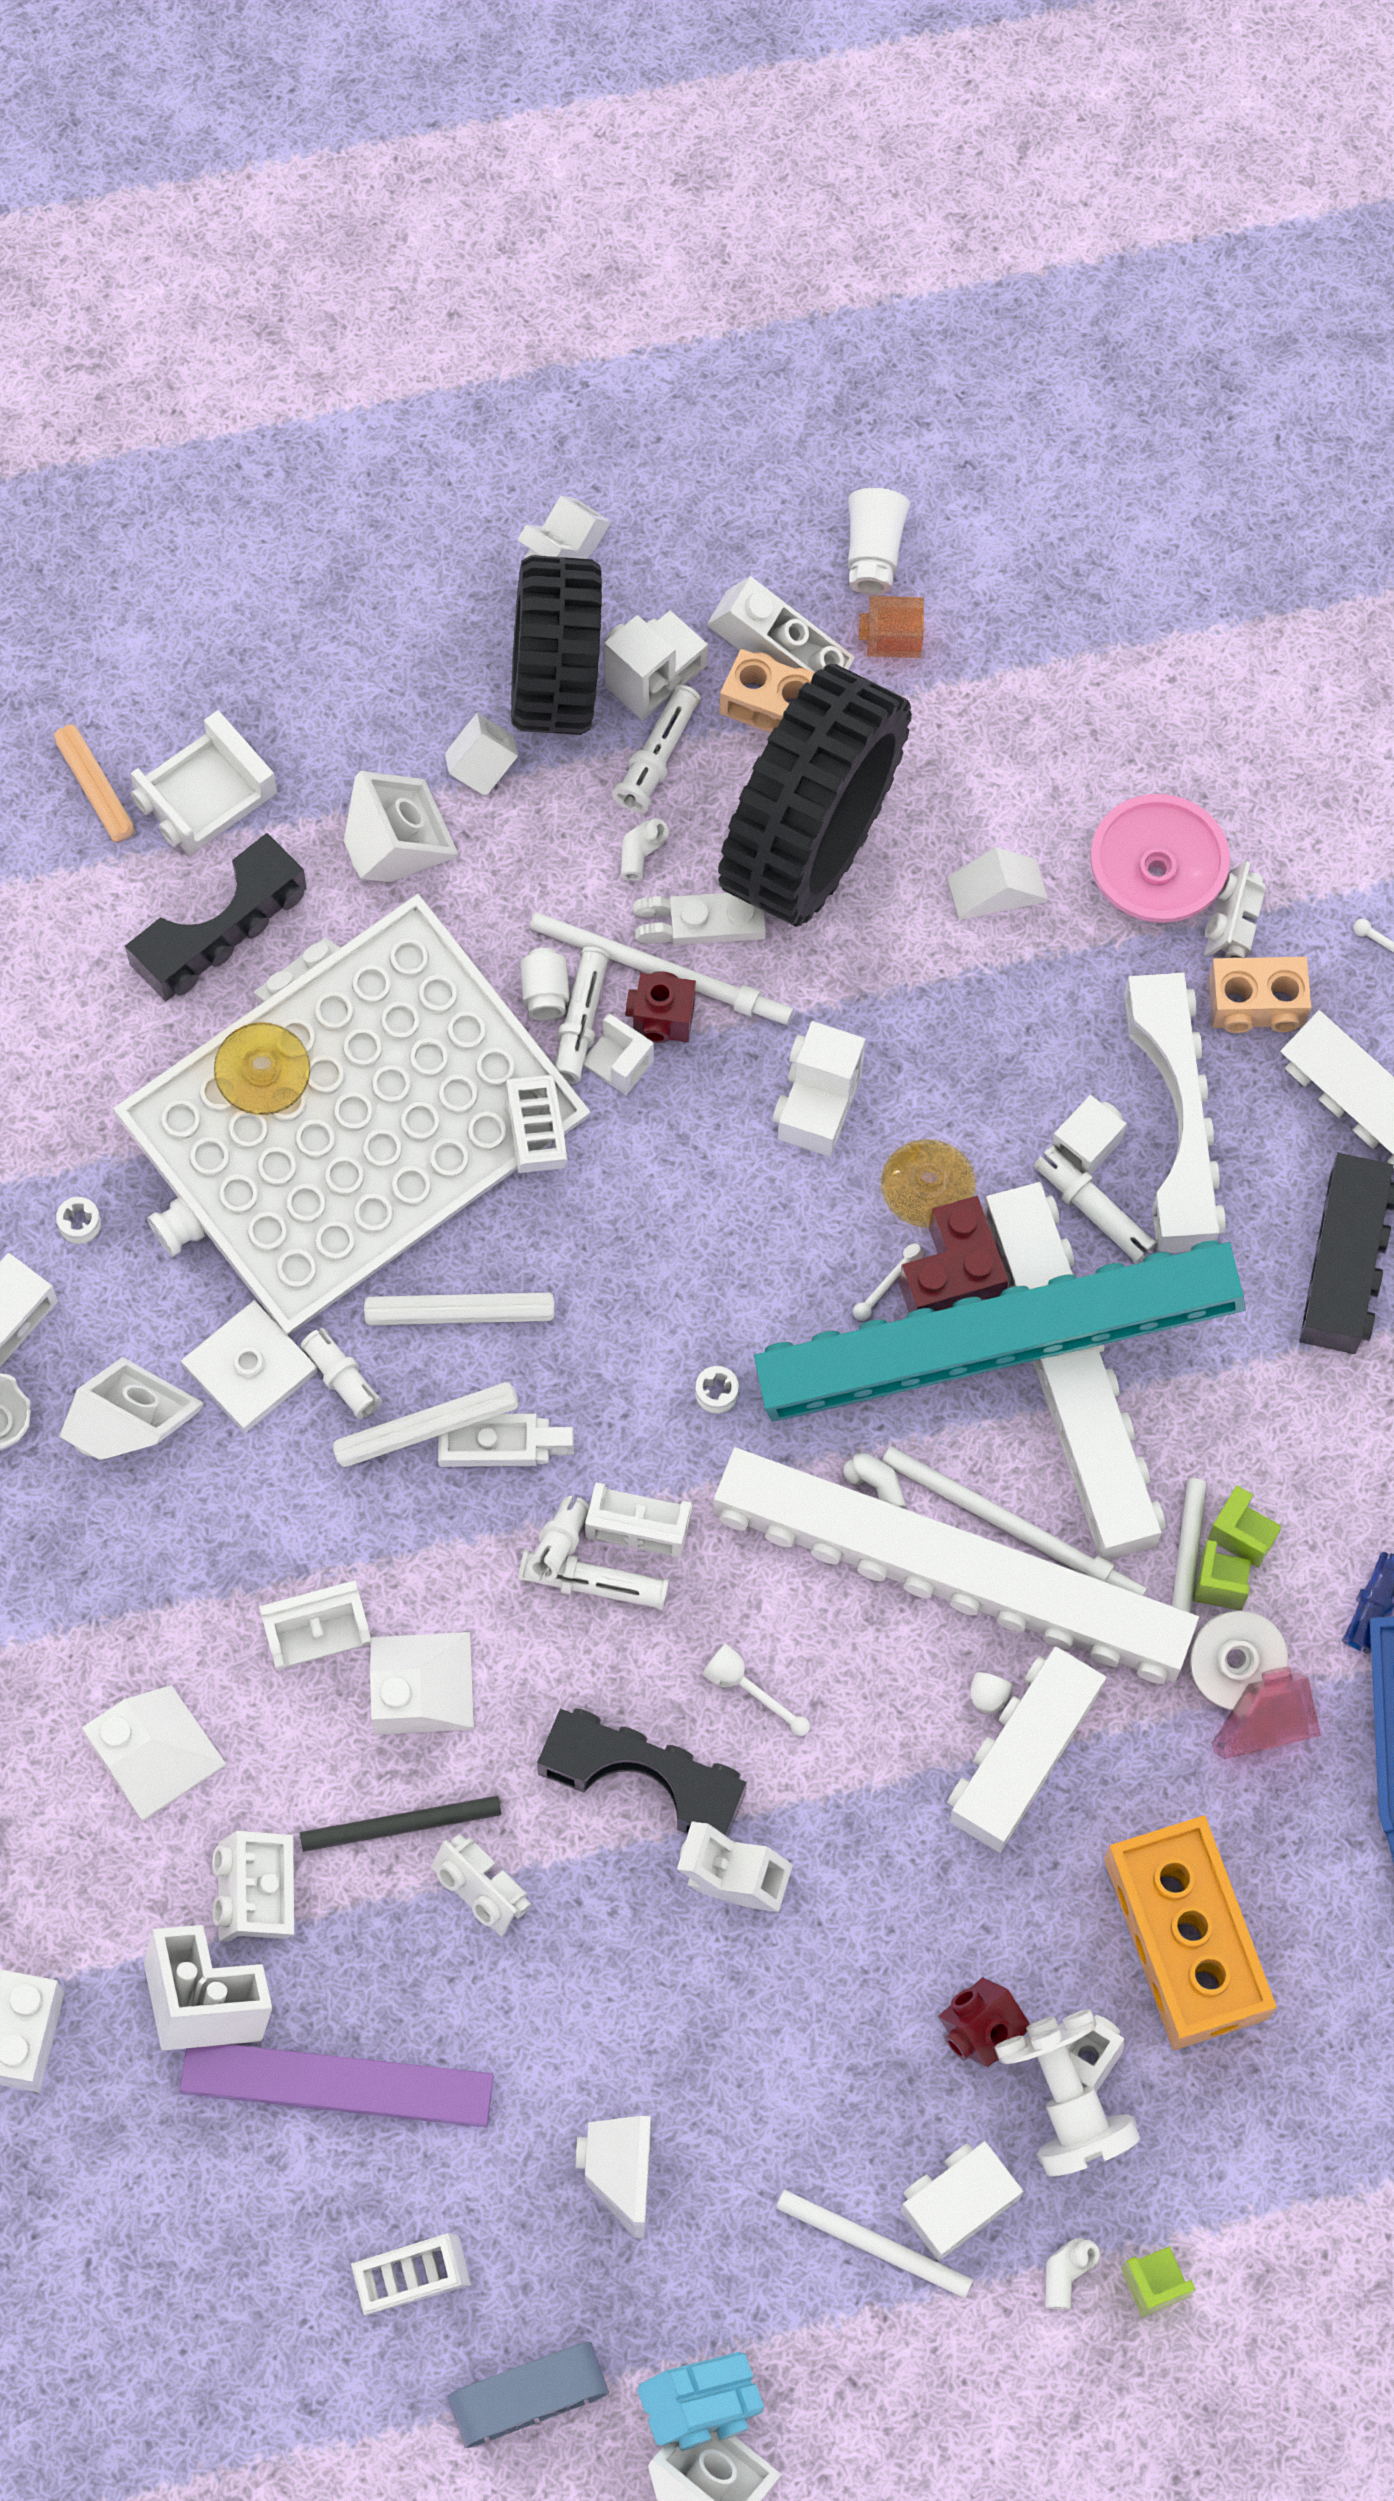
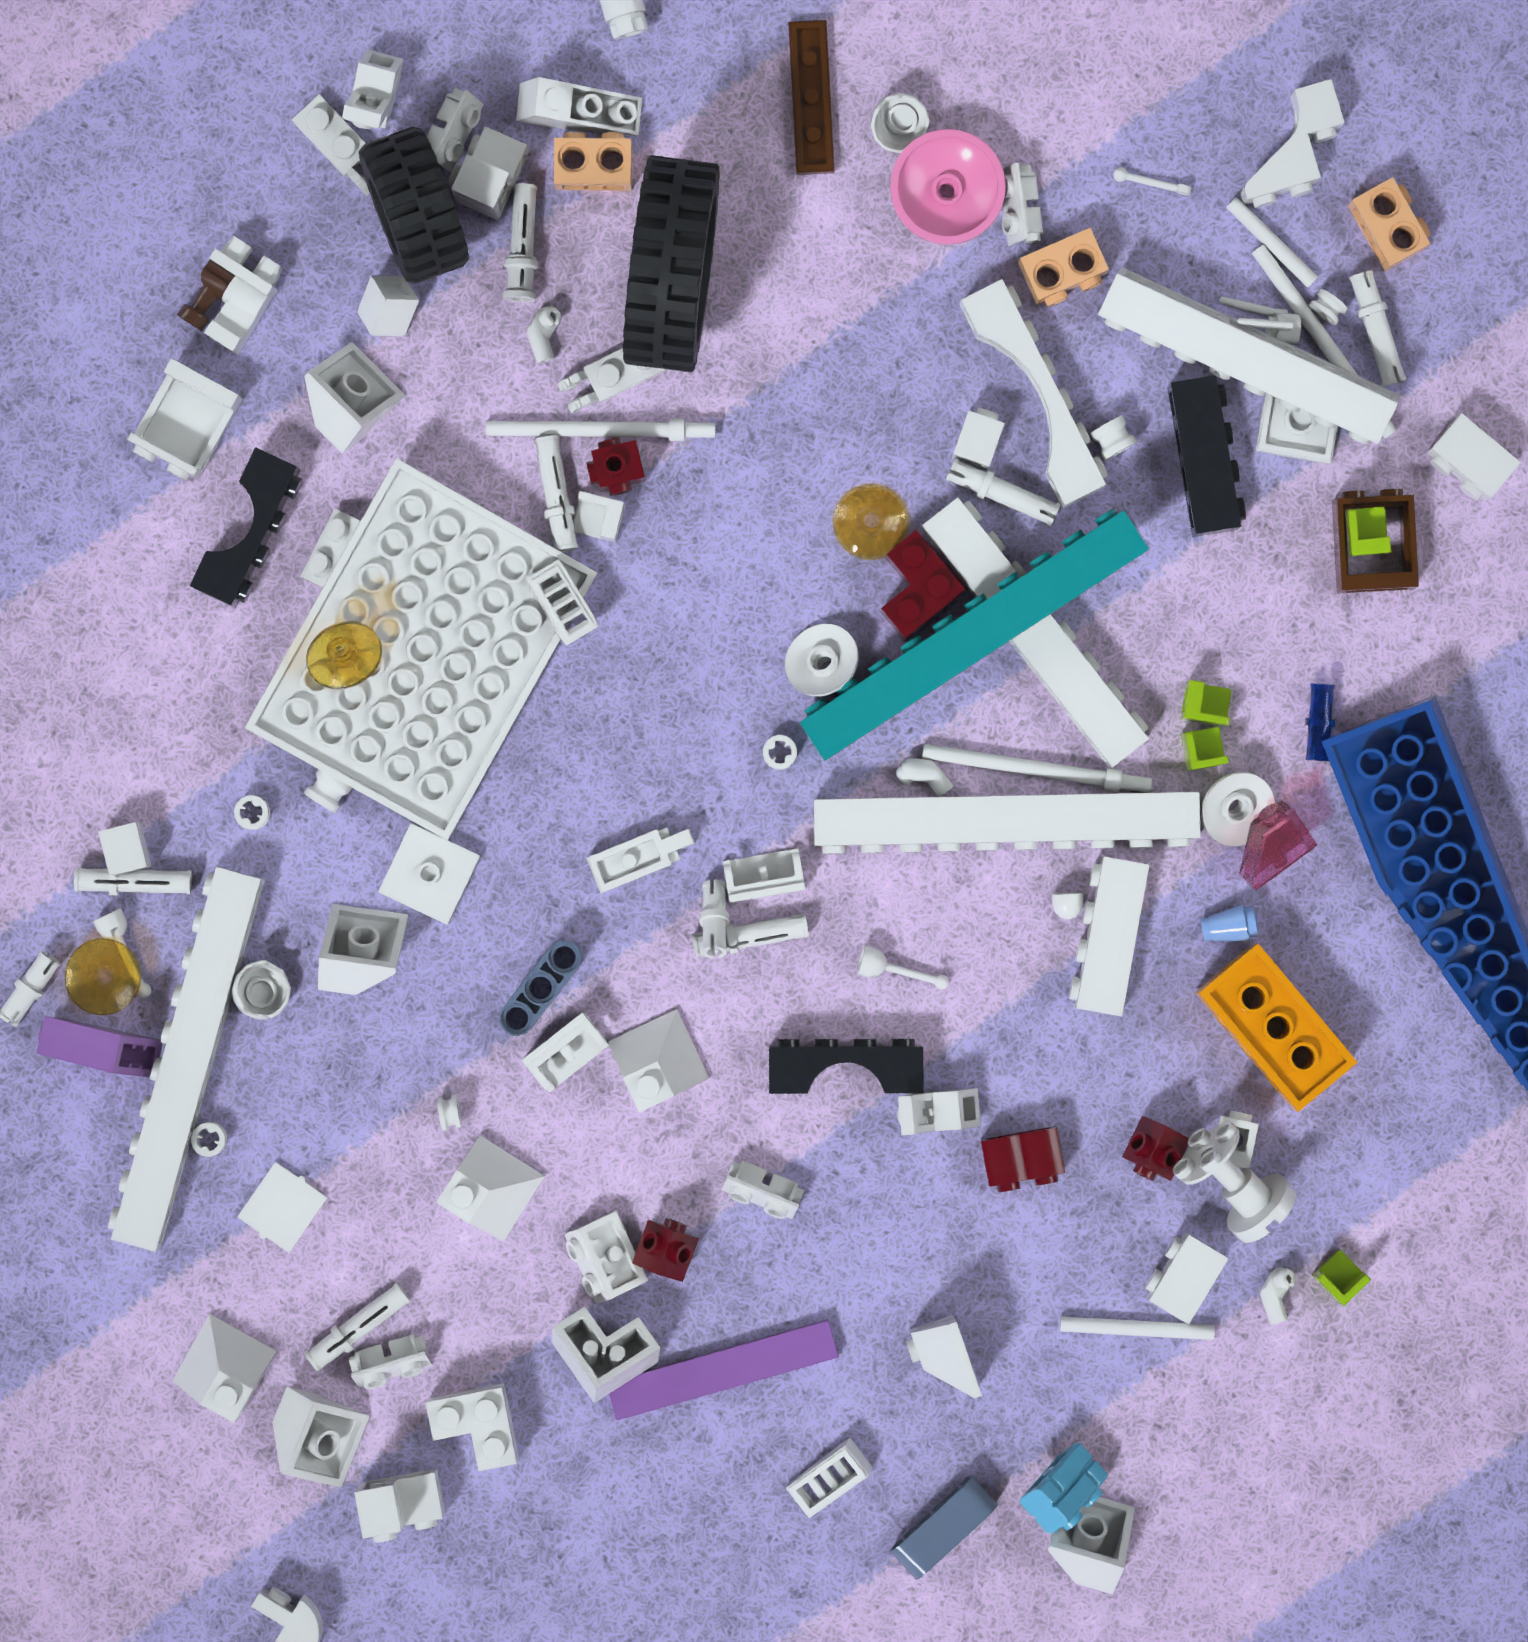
camera: 20 degrees left, 20 degrees up
(94, 783) = (98, 450): light nougat axle -> none
(147, 1640) = (449, 1112): none -> white bush
(328, 679) = (243, 292): none -> white hips
(329, 1519) = (526, 1000): none -> sand blue beam
(332, 1901) = (666, 1249): none -> dark red brick
(341, 1373) = (499, 853): white pin -> none
(400, 1823) = (687, 1168): pearl dark grey bar -> none
(425, 1424) = (580, 871): white axle -> none
(459, 1308) = (564, 766): white axle -> none
(497, 571) = (332, 138): none -> white hinge
(544, 984) = (518, 480): white brick -> none
(646, 597) = (461, 113): none -> white hinge
(808, 1302) = (811, 650): none -> white dish
(814, 1970) = (1023, 1157): none -> dark red brick
(825, 1080) = (764, 488): white brick -> none
(862, 1310) = (881, 586): white hinge -> none
(893, 626) = (663, 63): clear orange brick -> none
(996, 884) = (829, 254): white slope -> none
(1042, 724) = (811, 97): none -> reddish brown tile
(1130, 772) = (899, 121): none -> white hair
(1179, 1794) = (1231, 925): none -> light blue cone
(1189, 1544) = (1170, 735): white bar -> none
(1247, 1193) = (1113, 437): none -> white wheel

